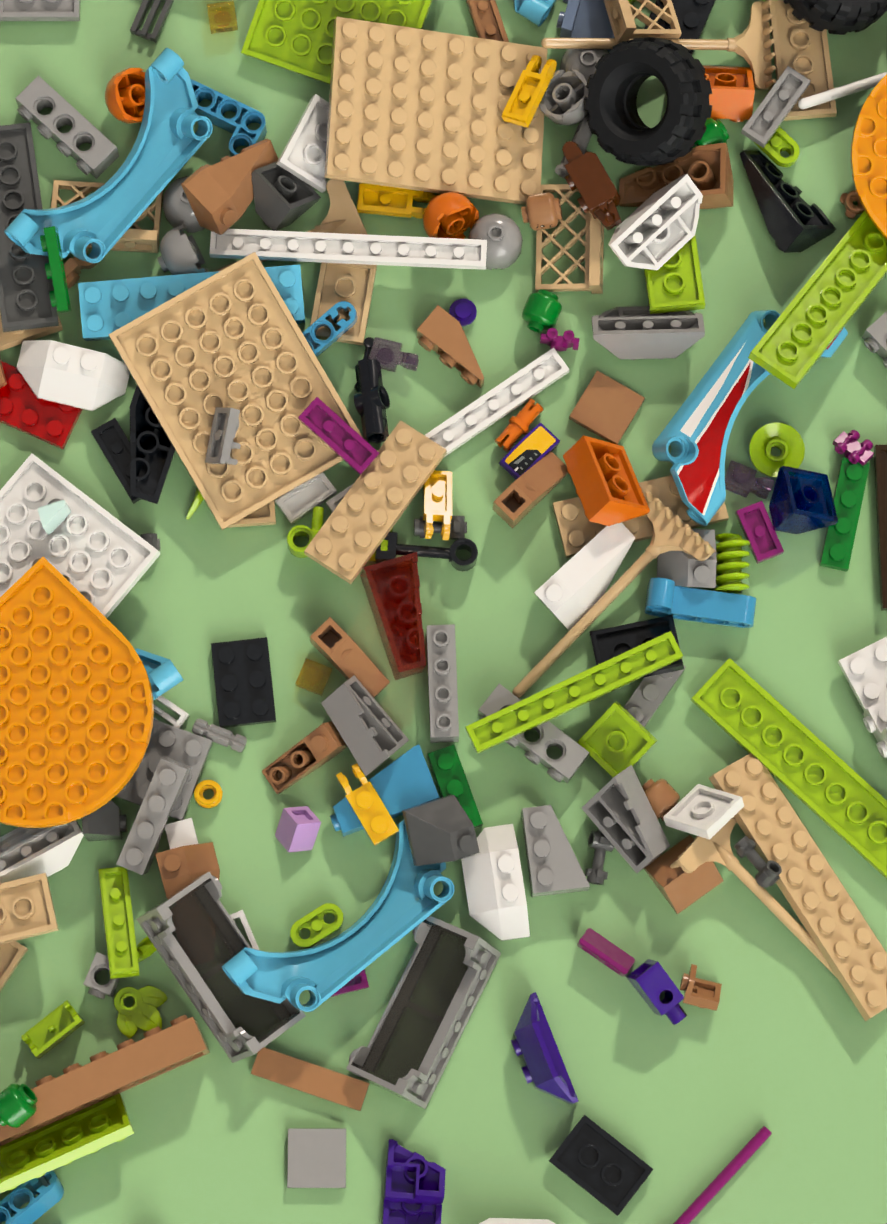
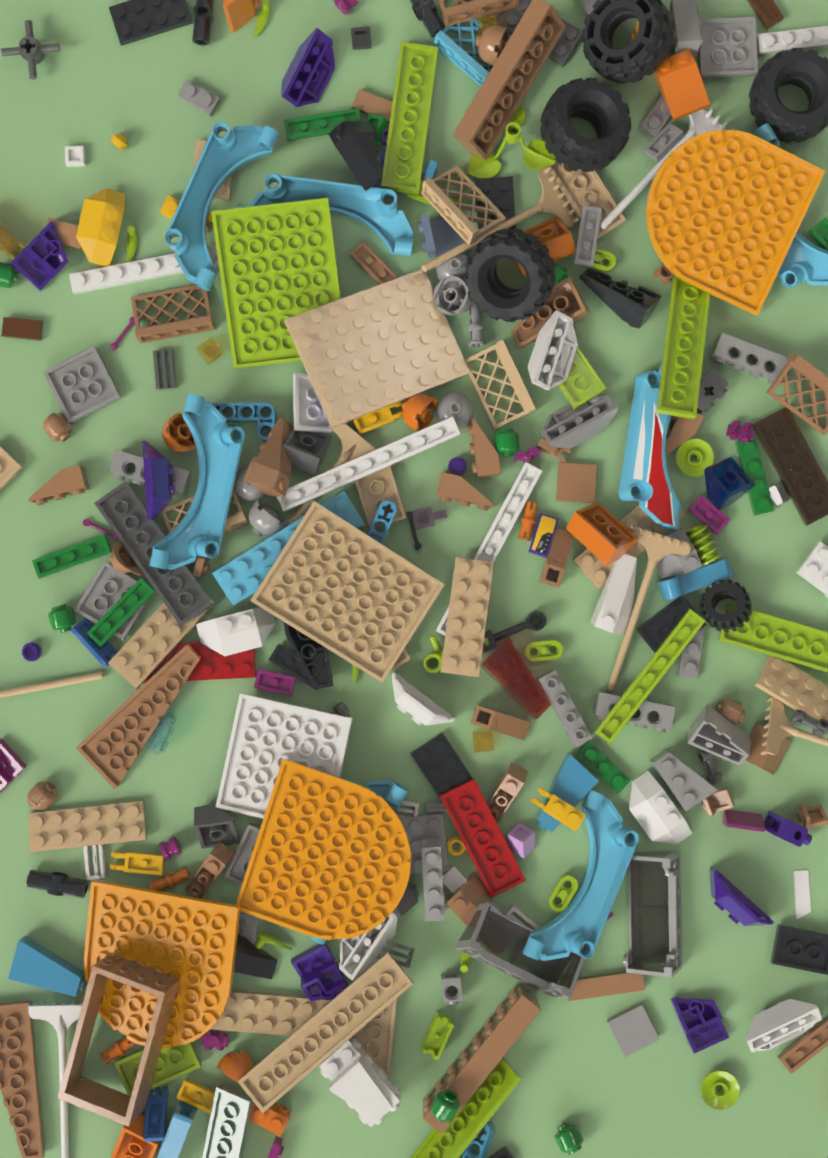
camera: 25 degrees left, 10 degrees up
(53, 515) = (274, 730): light aqua slope -> none
(55, 269) = (194, 573): green plate -> none
(70, 137) = (157, 480): none -> dark purple wedge
(70, 897) = (408, 957): none -> dark grey tile
(84, 465) = (274, 682): none -> magenta plate
(118, 922) = (445, 954): lime tile -> none
(142, 1012) = (485, 997): lime plate -> none
(221, 437) = (354, 628): light grey plate -> none
(248, 796) = (482, 837): none -> red plate
(254, 583) = (417, 703): none -> white wedge
(305, 497) = (422, 633): white tile -> none
(338, 435) = (424, 589): magenta plate -> none
(363, 725) = (532, 761): light grey wedge -> none
(371, 400) = (432, 554): black piece -> none
(437, 503) = (505, 597): hinge -> none
(439, 832) = (611, 803): dark grey slope -> none
(454, 597) = (543, 650): none -> lime plate
(458, 527) = (522, 606): dark grey bar -> none
(505, 317) = (485, 455): none -> medium nougat slope
(529, 92) = (429, 305): yellow hinge -> none
(542, 211) = (475, 378): medium nougat head -> none
(584, 908) = (718, 801): none -> medium nougat bracket
(593, 184) = (501, 346): reddish brown hinge -> none
(596, 350) = (553, 451): none -> medium nougat plate
(617, 740) = (687, 690): lime plate -> none
(637, 1092) = (802, 893): none -> white sticker
(703, 811) = (764, 709): white plate -> none
(726, 671) = (722, 591): none -> black tyre
(742, 480) = (684, 488): plate -> none
(779, 405) = (681, 431): none -> medium nougat slope
(843, 363) = (716, 385): none -> dark grey brick
(865, 550) = (778, 494): none -> light grey plate

